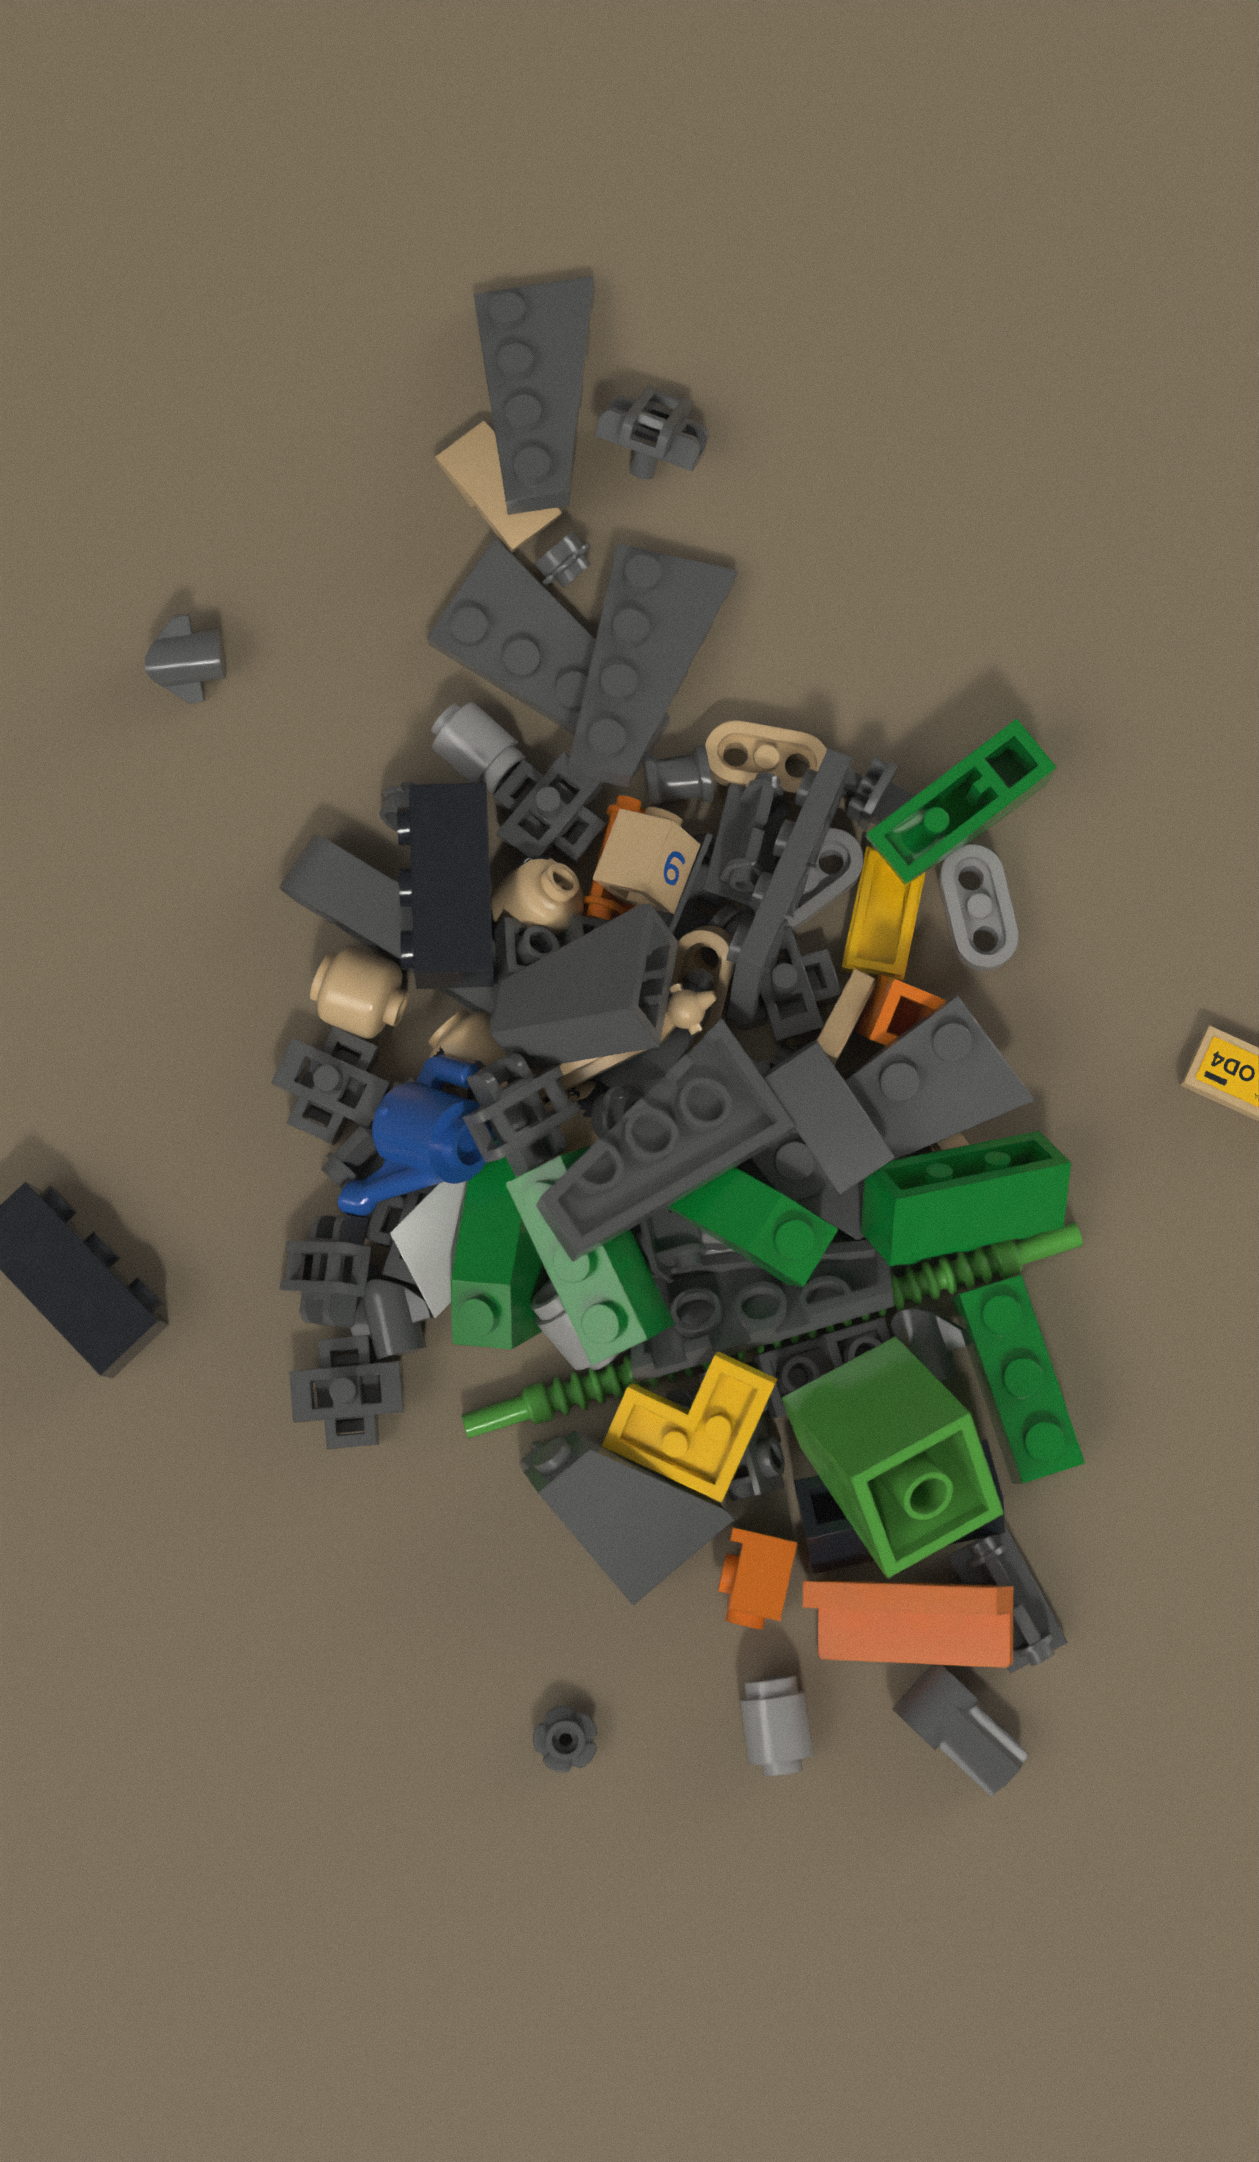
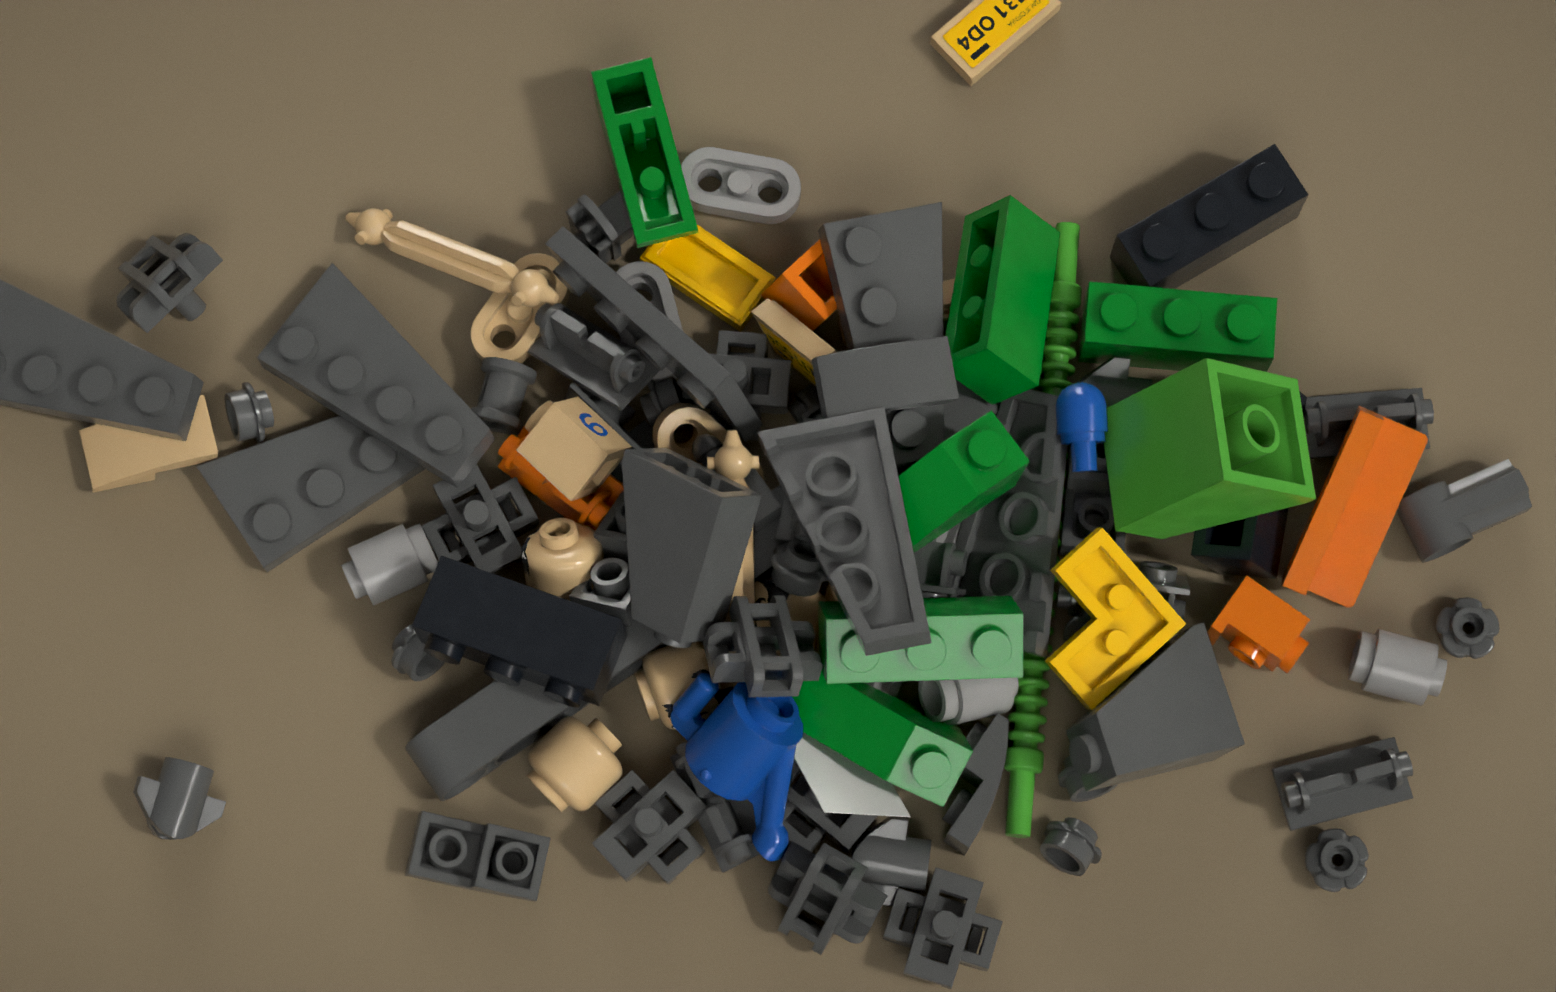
camera: 70 degrees left, 5 degrees down
(244, 943) = (477, 856): none -> dark grey slope
(475, 1480) = (1070, 846): none -> dark grey plate
(514, 1368) = (985, 773): none -> dark grey slope
(643, 1716) = (1343, 783): none -> dark grey hinge
(787, 675) = (452, 257): none -> tan wheel
(829, 1769) = (1455, 640): none -> dark grey plate
(873, 1323) = (1082, 423): none -> blue cylinder
(1138, 1369) = (1210, 223): none -> black brick

